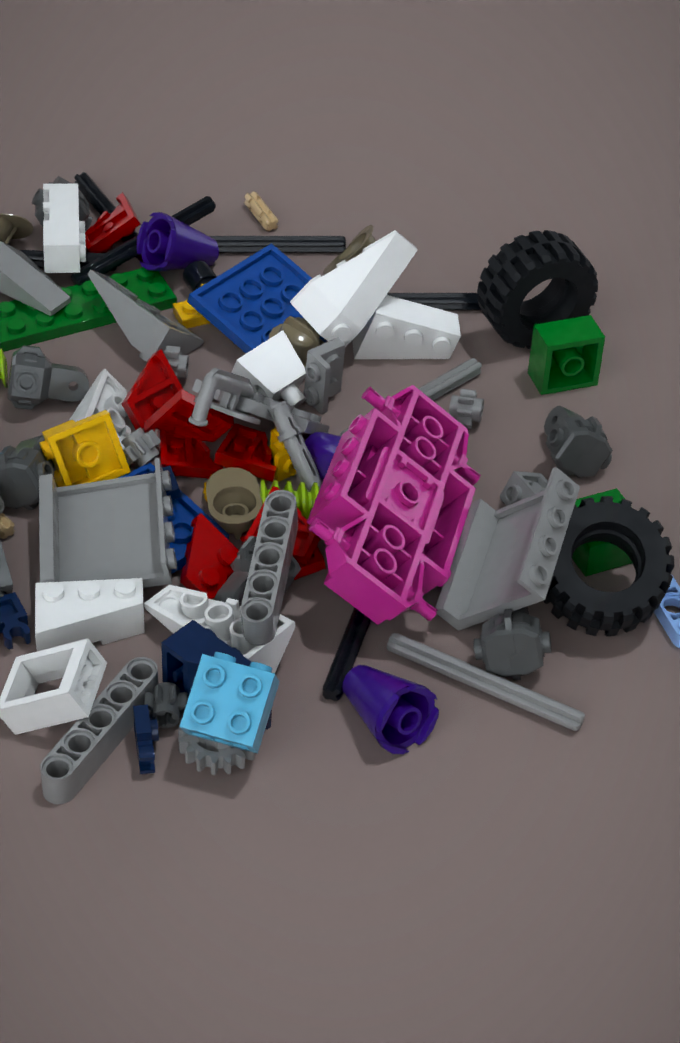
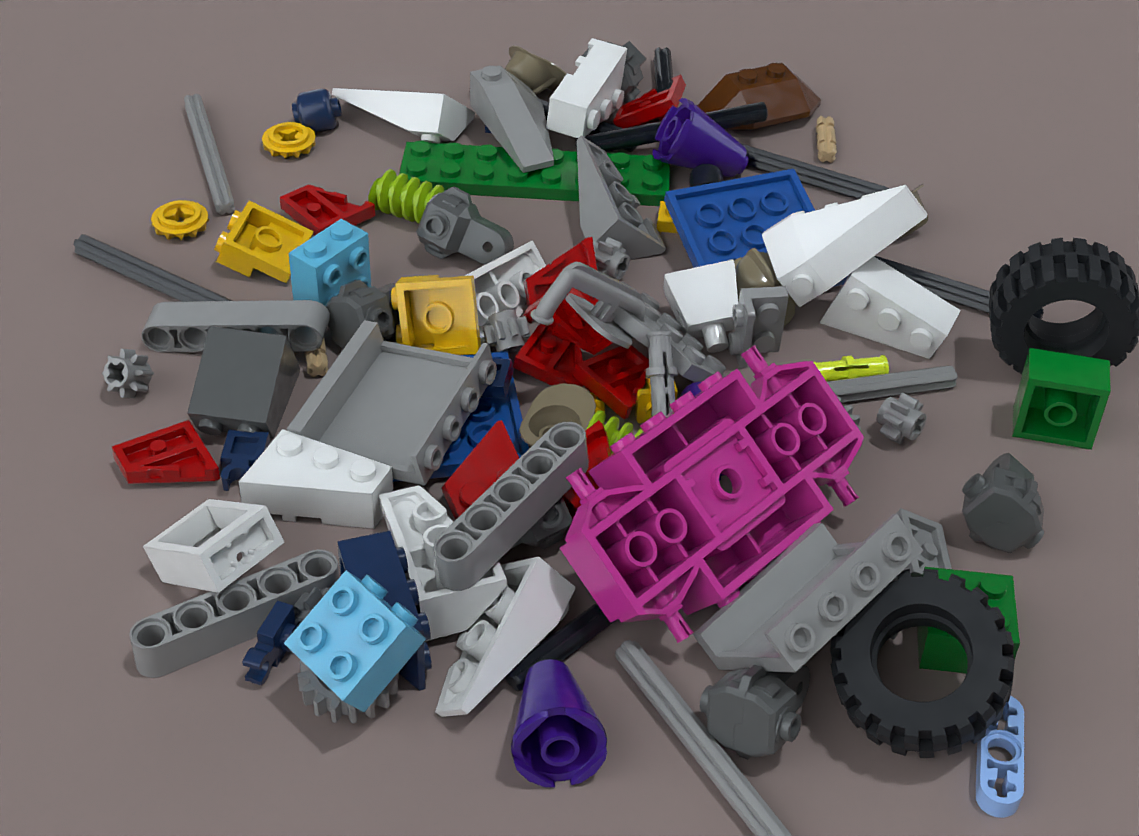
camera: 30 degrees right, 0 degrees up
(188, 186) = (774, 84): none -> reddish brown wedge
(308, 667) = (505, 633): none -> white wedge
(416, 378) = (853, 368): none -> neon yellow pin

